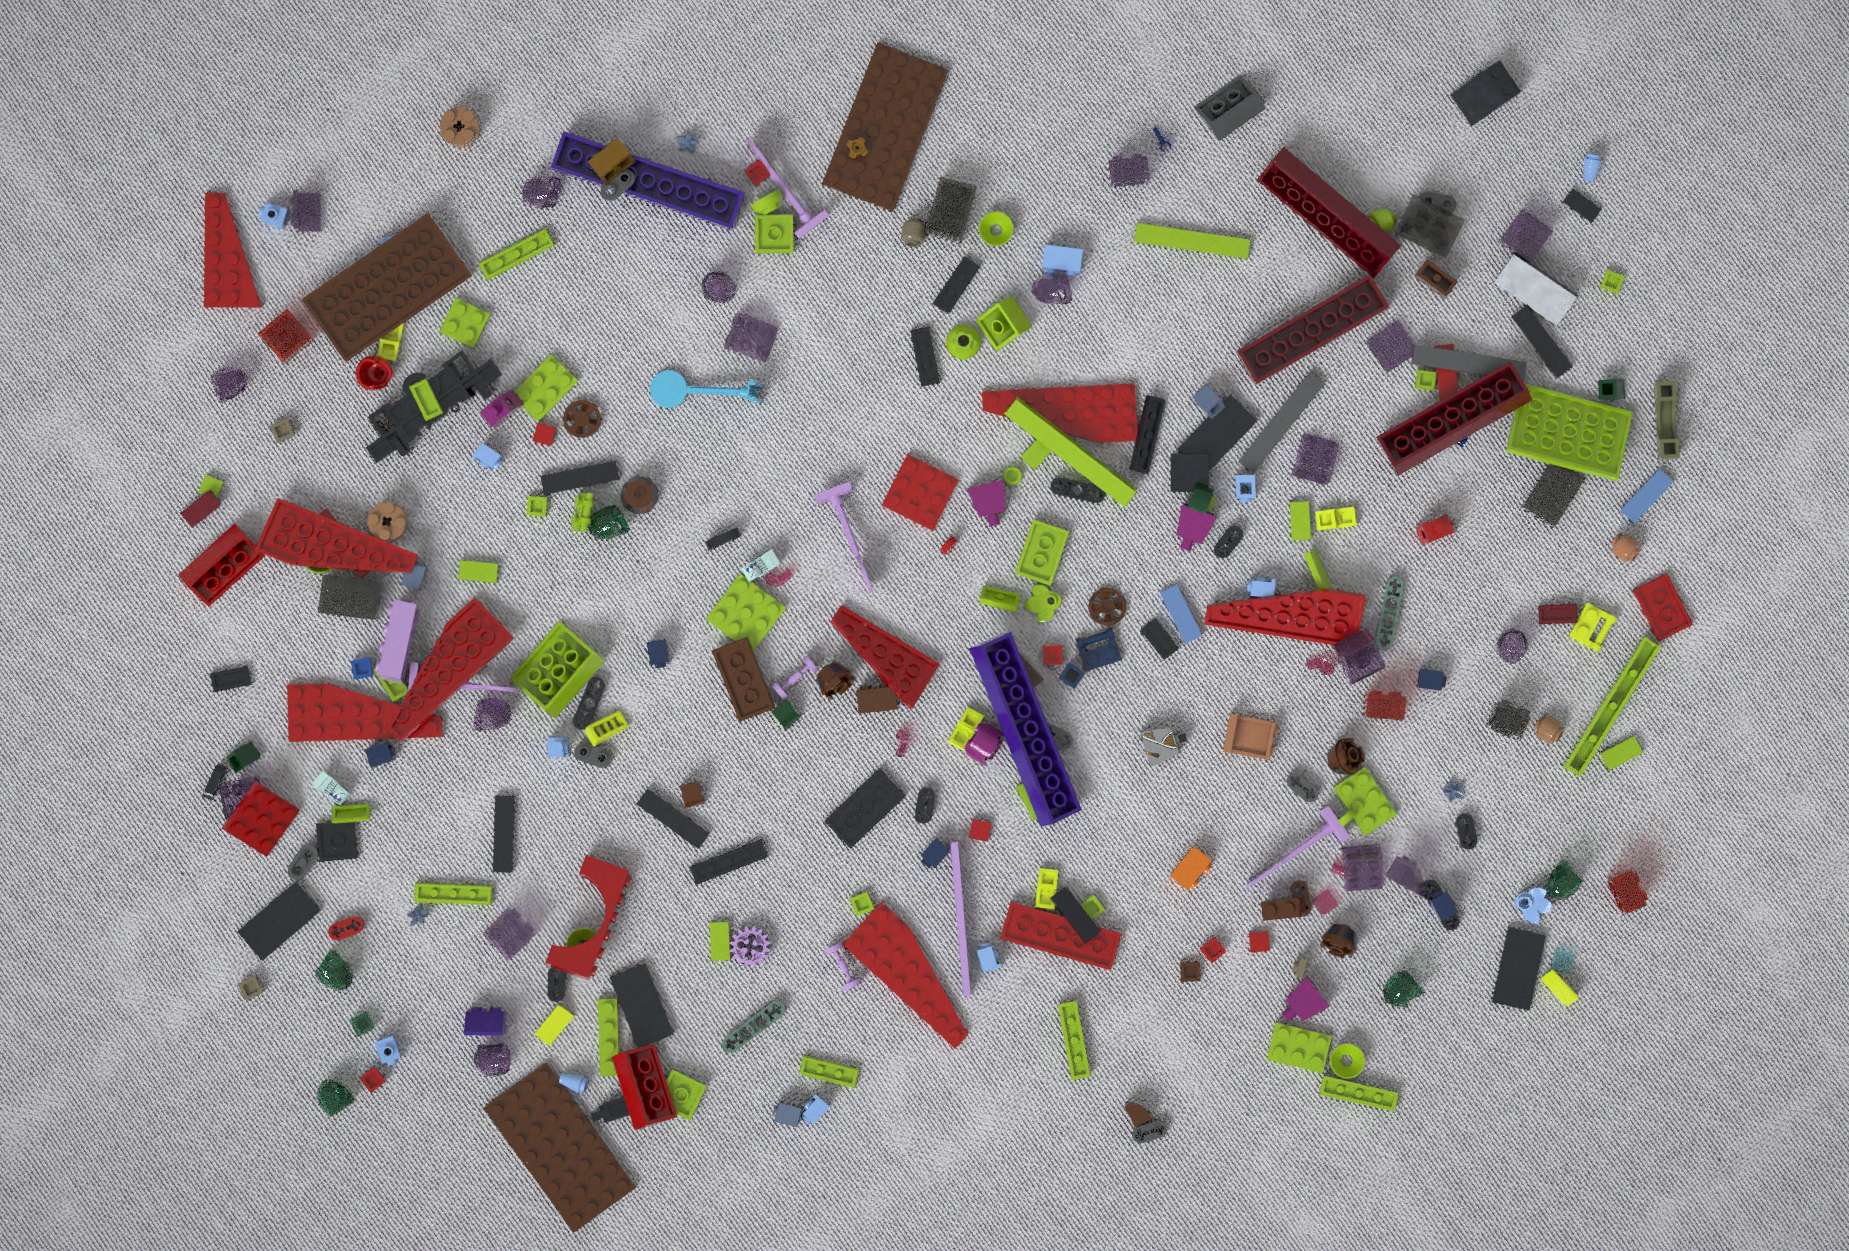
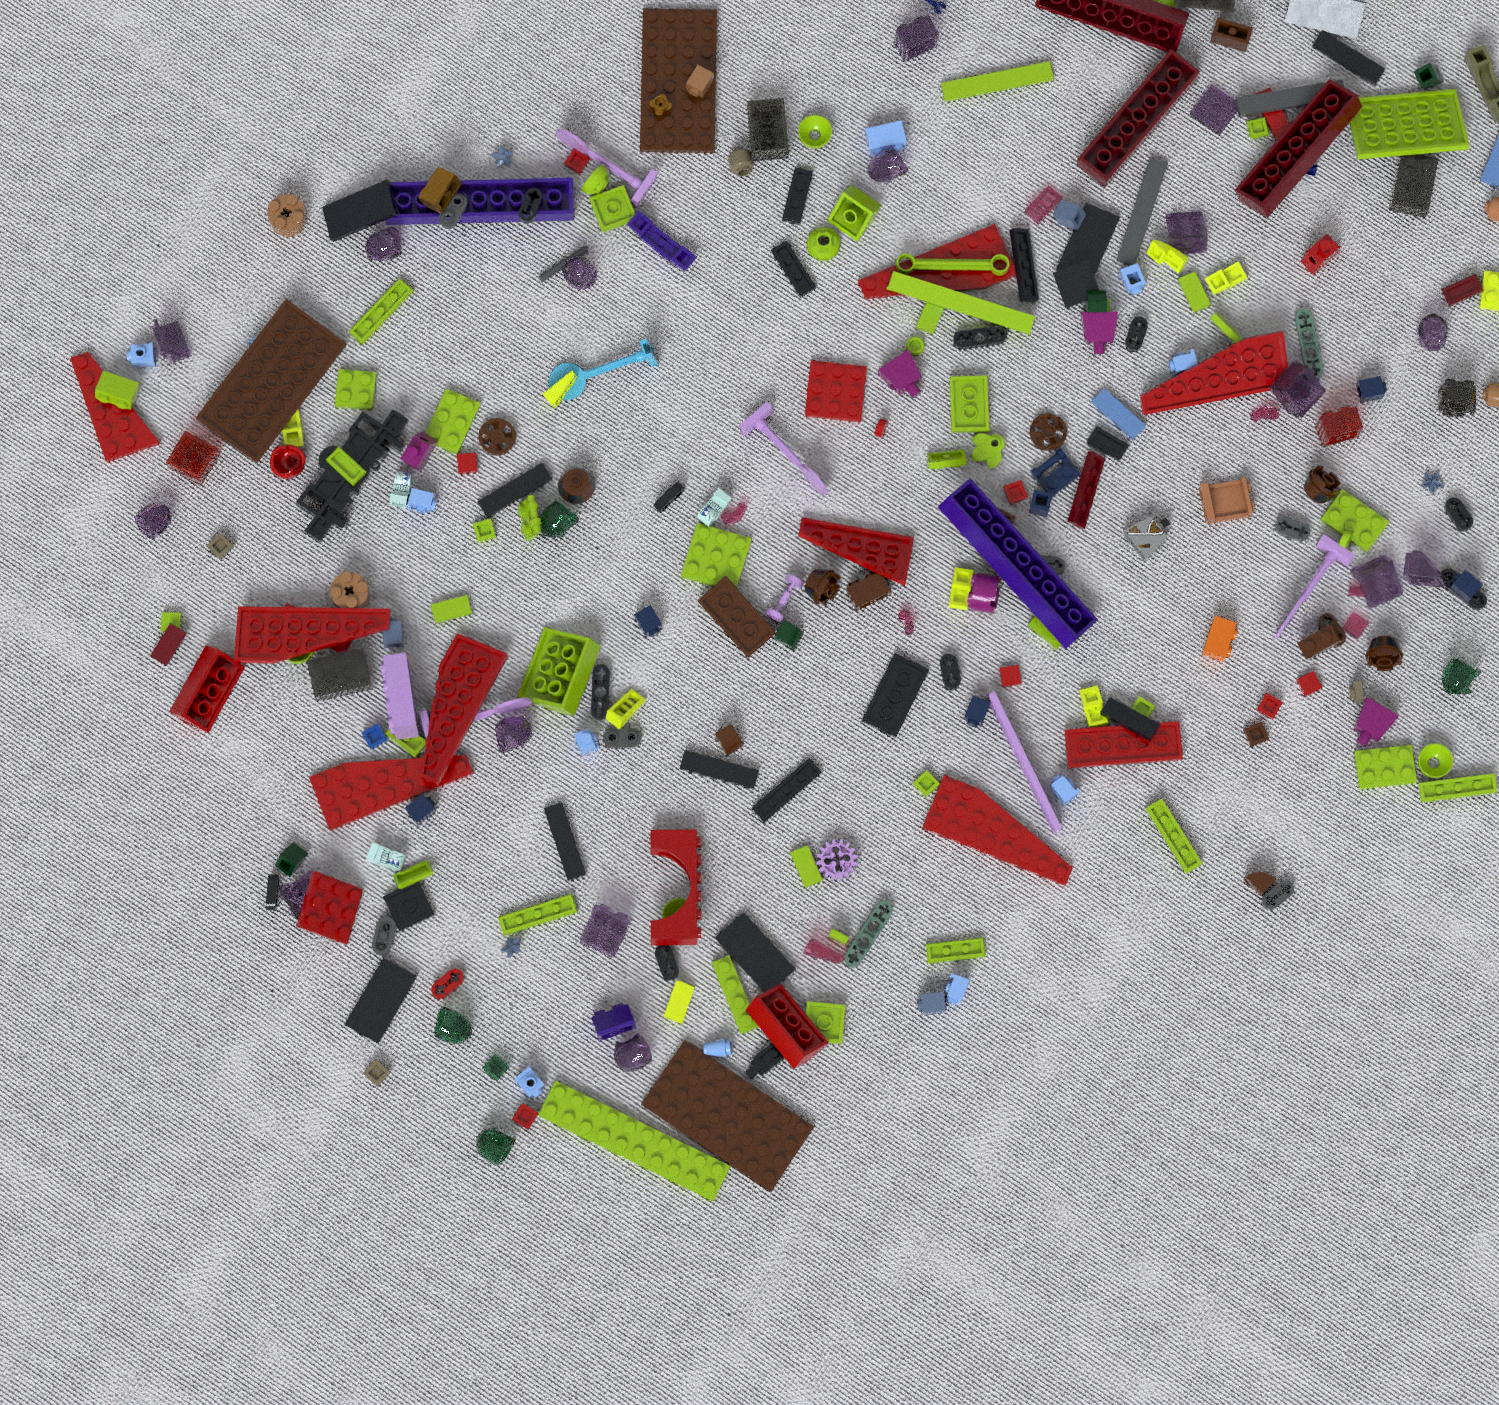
camera: 30 degrees left, 10 degrees down
(230, 679) = (253, 792): black tile -> none
(236, 244) = (116, 390): none -> lime brick
(465, 1138) = (634, 1141): none -> lime plate
(472, 437) = (401, 489): none -> light aqua leg
(530, 149) = (360, 210): none -> black tile
(653, 398) = (559, 390): none -> neon yellow slope
(690, 203) = (527, 204): none -> black beam
(700, 1025) = (819, 951): none -> clear pink slope
(702, 272) = (558, 267): none -> dark grey bar
(721, 1016) = (838, 937): none -> lime tile
(751, 337) = (626, 307): clear purple bracket -> none
(808, 284) = (660, 242): none -> dark purple slope
(843, 966) = (931, 846): lavender wheel -> none
(902, 139) = (699, 81): none -> medium nougat brick
(1077, 410) = (952, 264): none -> lime piece
(1120, 677) = (1086, 490): none -> dark red plate
(1175, 388) = (1033, 214): none -> clear pink slope
(1285, 472) = (1165, 253): none -> neon yellow slope

